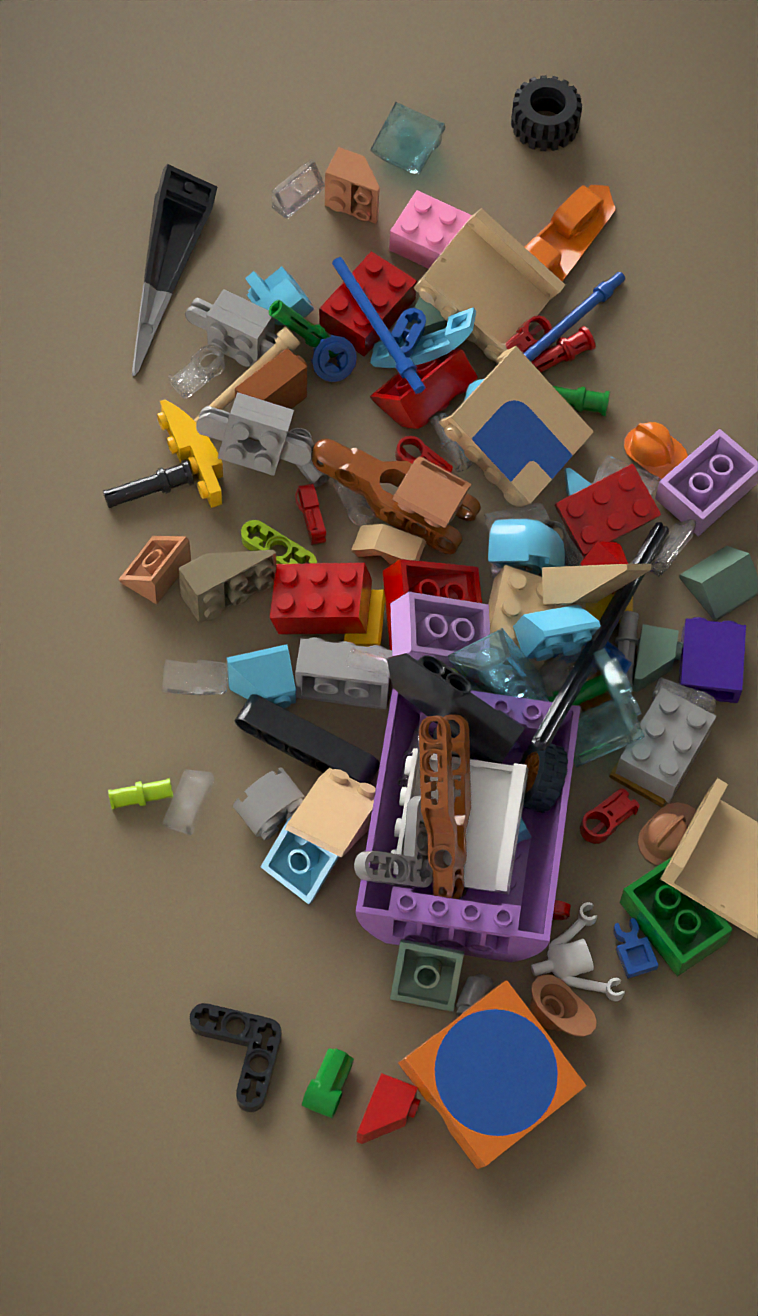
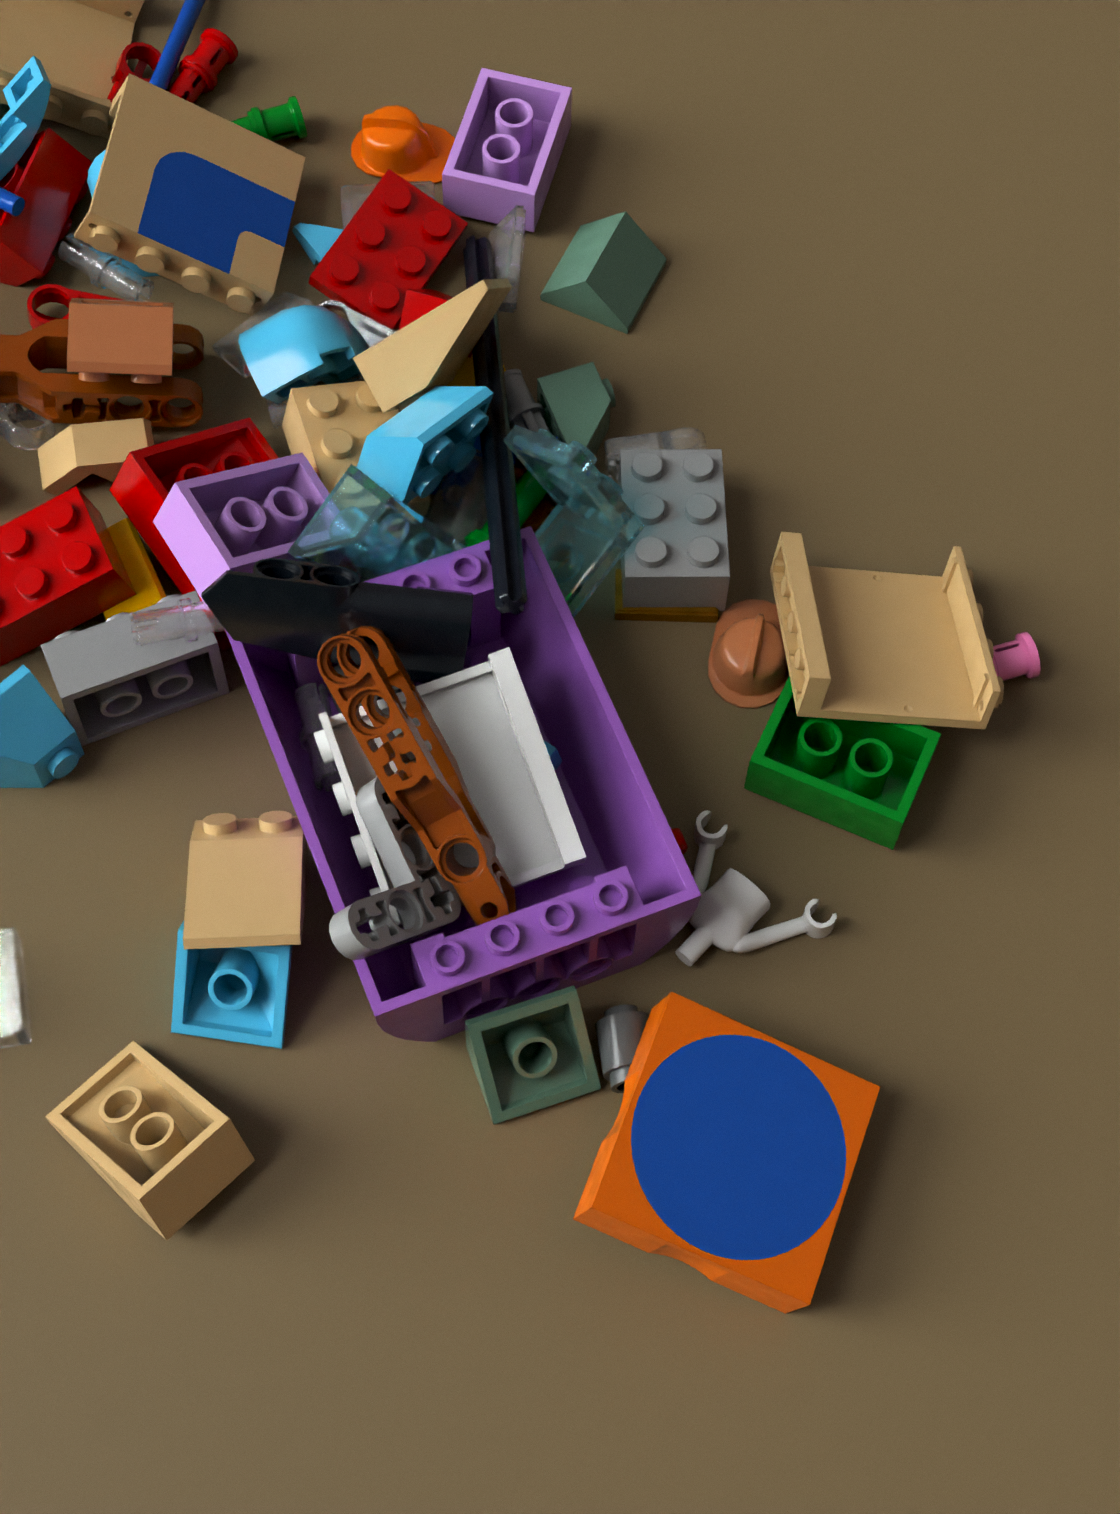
camera: 30 degrees left, 0 degrees up
(222, 912) = (152, 1138): none -> tan slope
(249, 1037) = (308, 1316): black beam -> none
(269, 803) = (131, 924): light grey brick -> none
(304, 740) = (129, 800): black beam -> none
(326, 1089) = (481, 1328): green piece -> none
(388, 1108) = (597, 1299): red slope -> none
(545, 776) = (541, 651): black wheel -> none
(560, 1008) = (764, 989): nougat piece -> none
(611, 814) = (654, 669): red piece -> none
(634, 953) = (814, 849): blue plate -> none
(713, 658) = (662, 377): dark purple brick -> none

